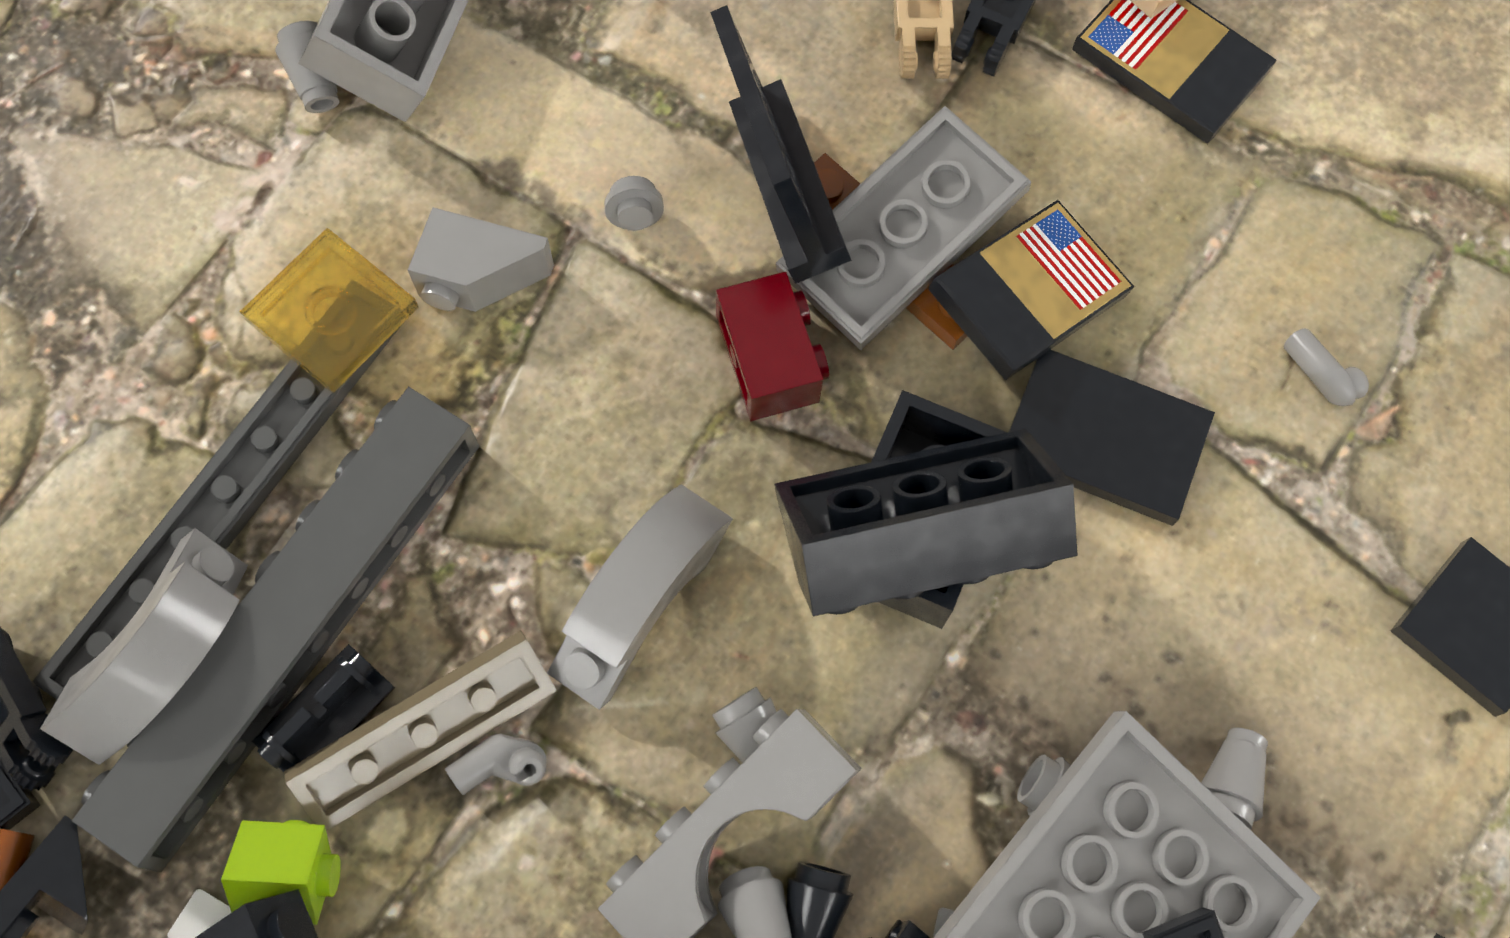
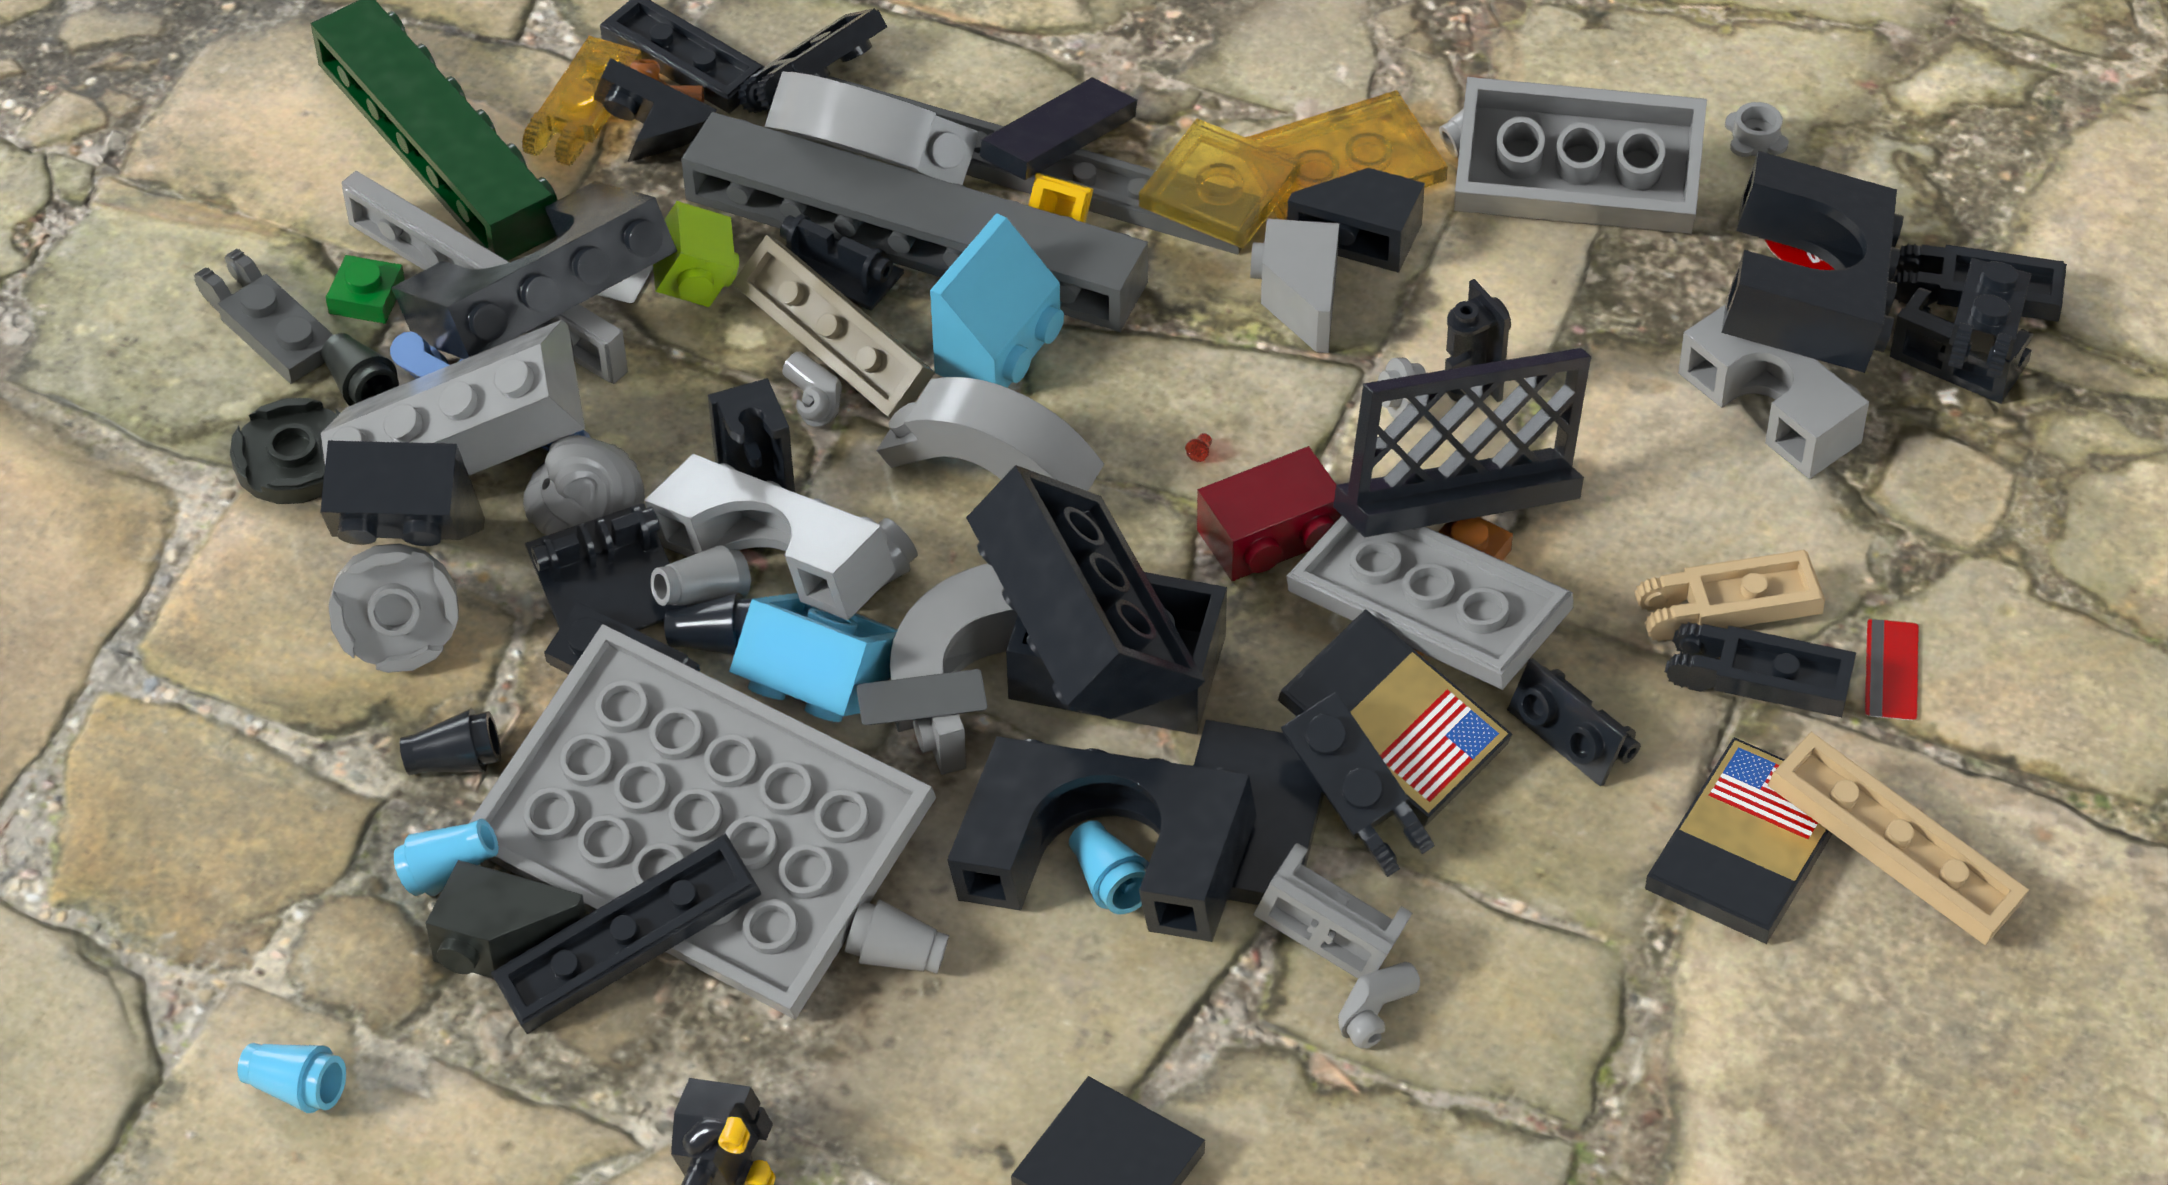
camera: 85 degrees right, 20 degrees down
(203, 451) = (1058, 128): none -> black tile
(308, 469) = (1060, 197): none -> yellow slope
(312, 180) = (1362, 135): none -> clear yellow tile
(404, 182) = (1374, 213): none -> black slope
(463, 552) = (994, 308): none -> medium azure slope
(597, 834) = (752, 432): none -> black hinge
(619, 120) = (1477, 334): none -> black hinge
(656, 398) = (1198, 448): none -> clear red piece
(887, 814) = (811, 654): none -> medium azure slope
(894, 698) = (944, 634): none -> light grey arch
(978, 708) = (921, 697): none -> dark grey sticker
(1053, 146) = (1570, 723): none -> black hinge
(1083, 619) = (1041, 789): none -> black arch
(1103, 333) = (1354, 777): none -> black hinge
(1168, 565) = (1109, 867): none -> medium azure cone
(1247, 380) = (1328, 918): none -> light grey hinge

